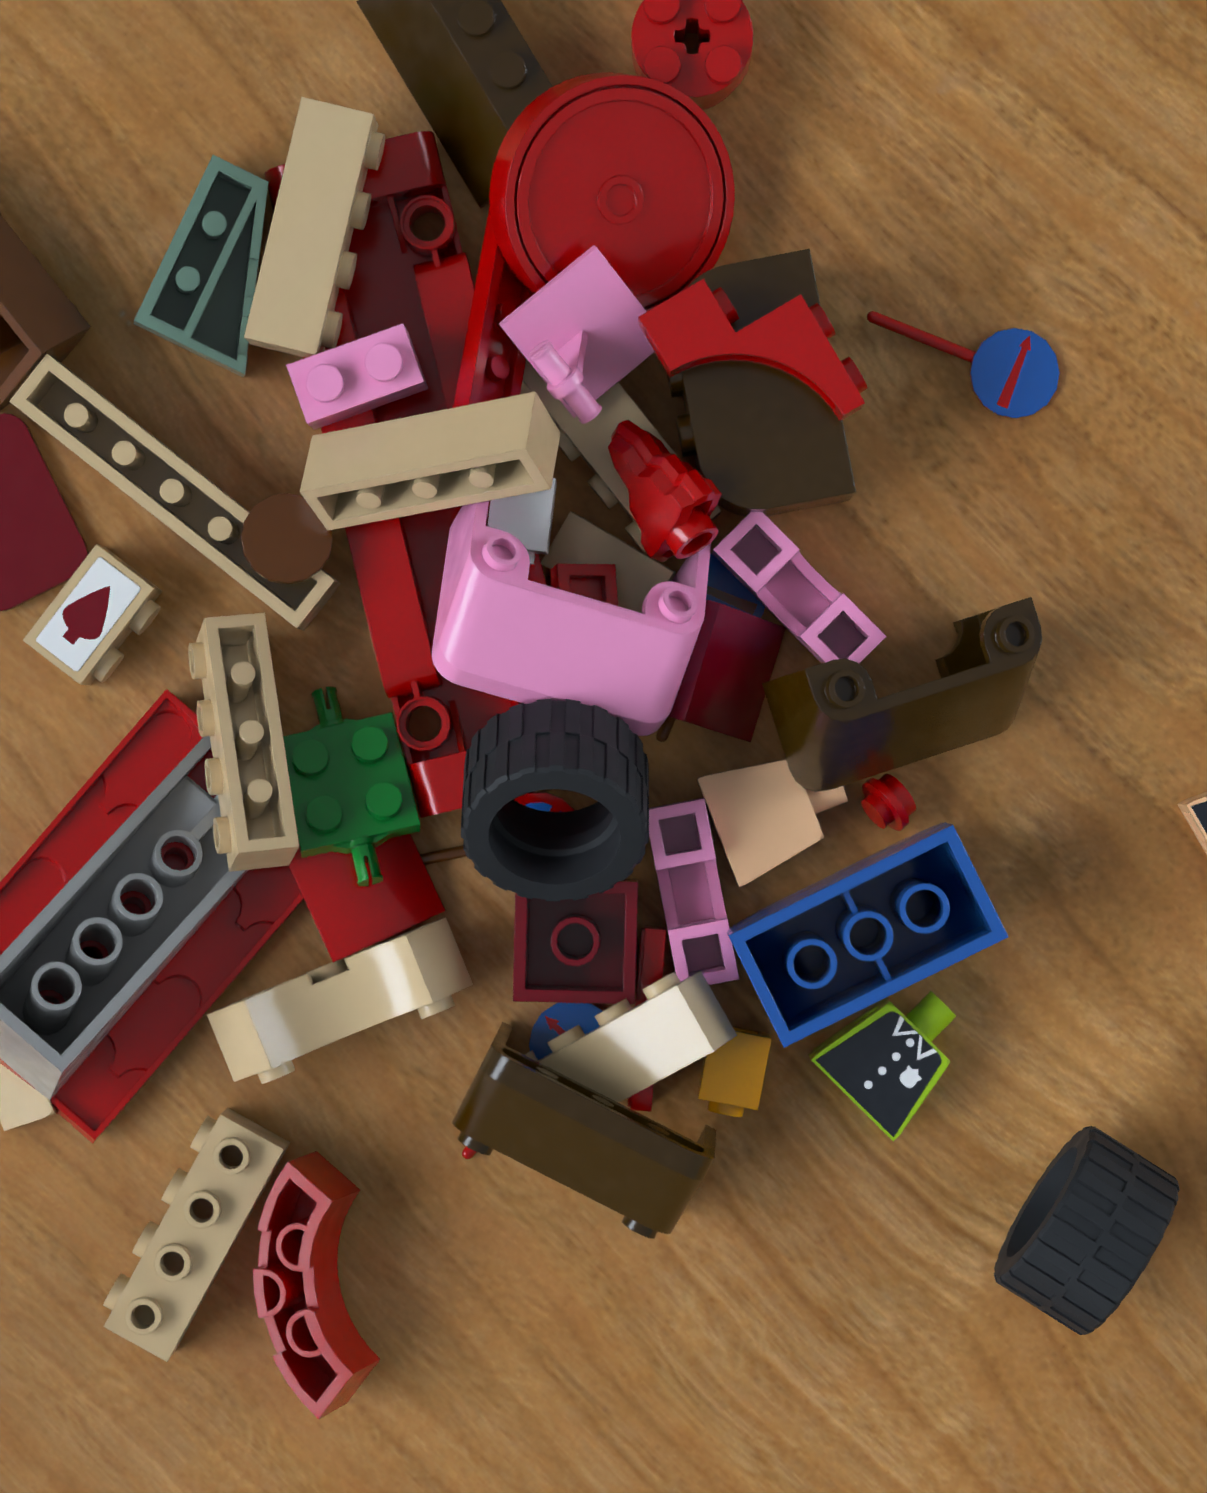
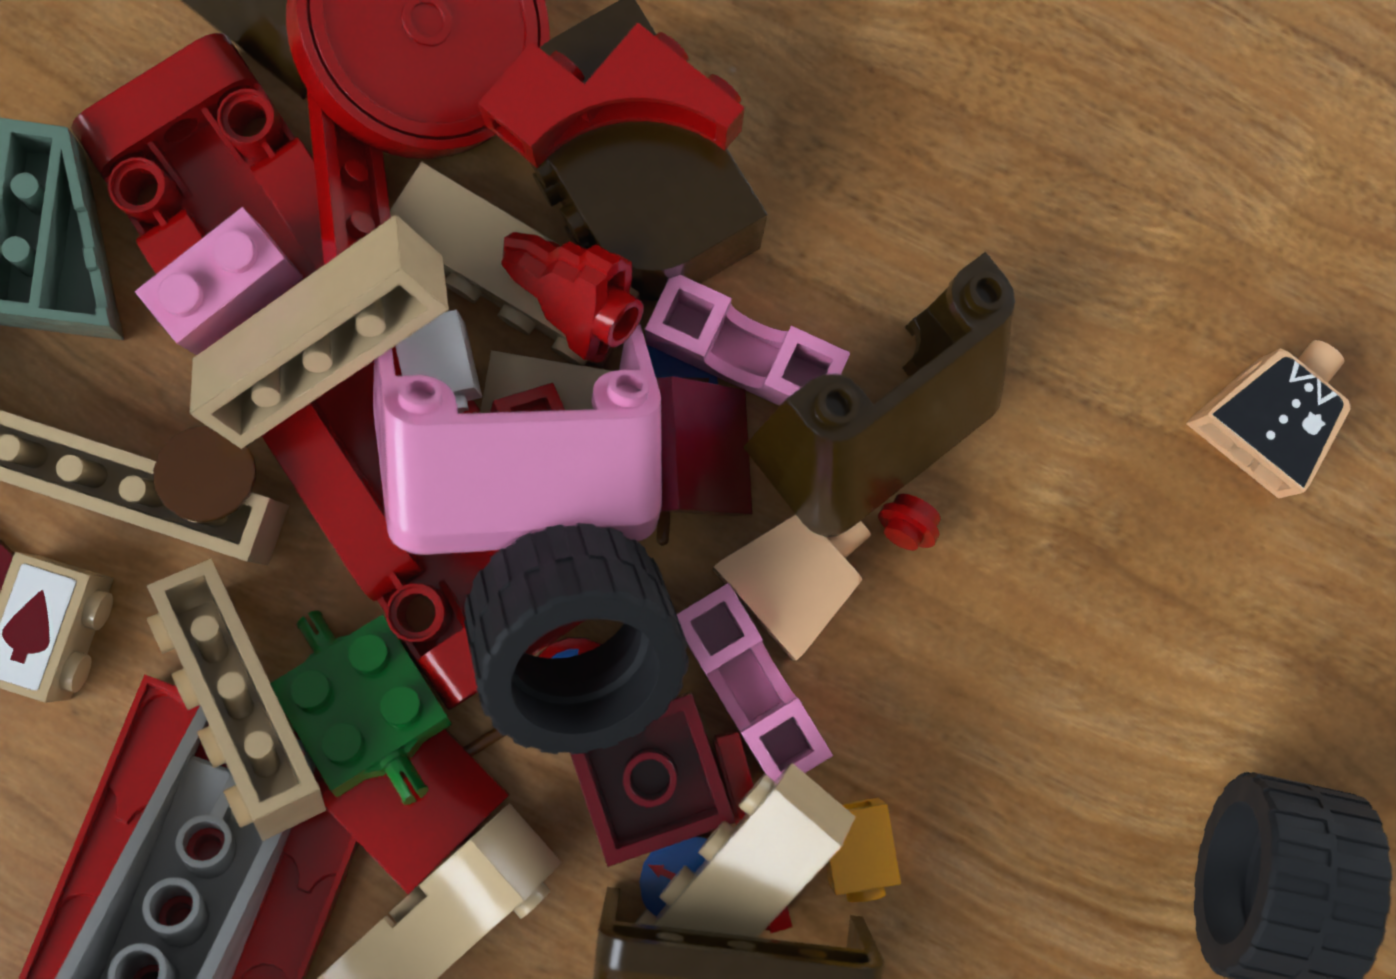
camera: 30 degrees left, 5 degrees down
(313, 229) = (124, 151): tan brick -> none
(581, 333) = (432, 159): bright pink plate -> none
(866, 932) = (949, 658): blue brick -> none
(888, 1060) = (1010, 781): black torso -> none
(1009, 372) = (867, 71): blue piece -> none

